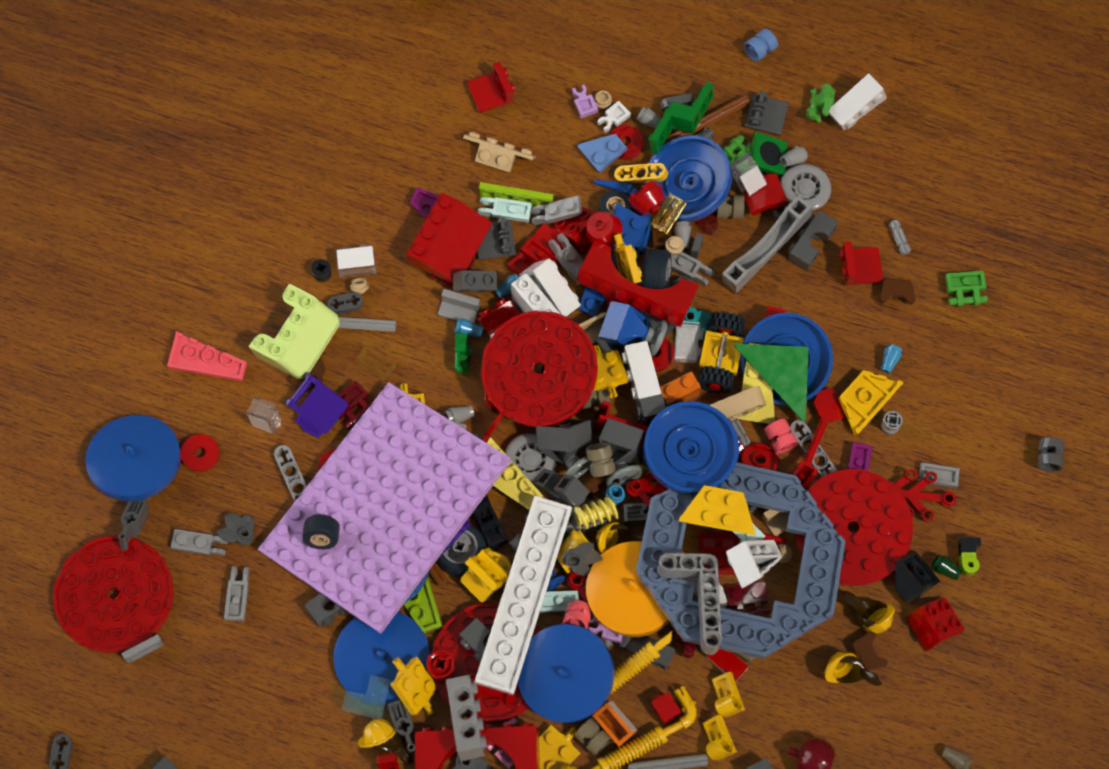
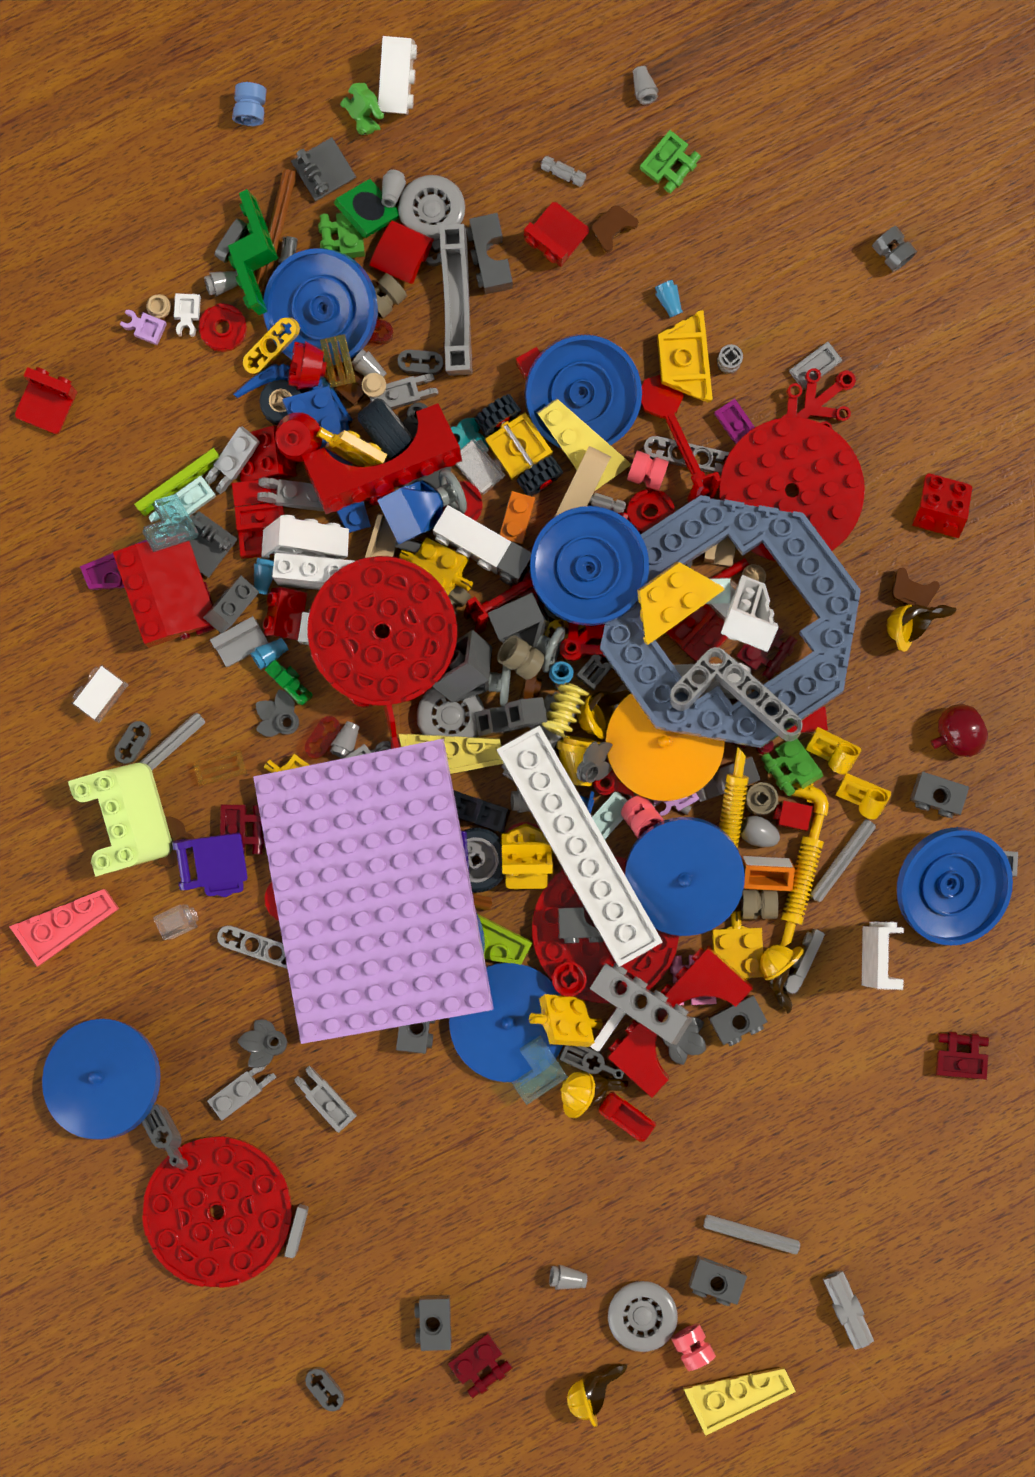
camera: 45 degrees left, 15 degrees up
(197, 442) = (138, 1011): red tile -> none
(321, 532) = (346, 976): black wheel -> none
(323, 274) = (82, 736): black wheel -> none
(359, 285) = (127, 713): tan plate -> none
(432, 718) = (607, 1029): none -> white tile
(435, 364) = (274, 714): none -> dark grey plate
(448, 398) = (317, 734): none -> clear red beam
(487, 212) = (174, 525): none -> clear light blue plate
(496, 154) = (117, 459): tan bracket -> none
(603, 151) = (212, 357): medium blue wing -> none
(636, 697) = (759, 832): none -> light grey animal
(655, 678) = (761, 799): none -> dark tan wheel
(696, 246) = (392, 365): dark grey tile -> none
(699, 681) = (797, 761): none -> bright green plate
(717, 257) = (420, 356): none -> dark grey beam
(747, 175) = (373, 250): brick -> none
(783, 370) = (593, 408): green tile -> none
(871, 613) = (882, 553): piece -> none
(913, 577) = (887, 483): black slope -> none
(946, 567) = (902, 445): dark green cone -> none
(967, 555) = (912, 416): leg -> none
(992, 236) = (645, 88): none -> light grey cone

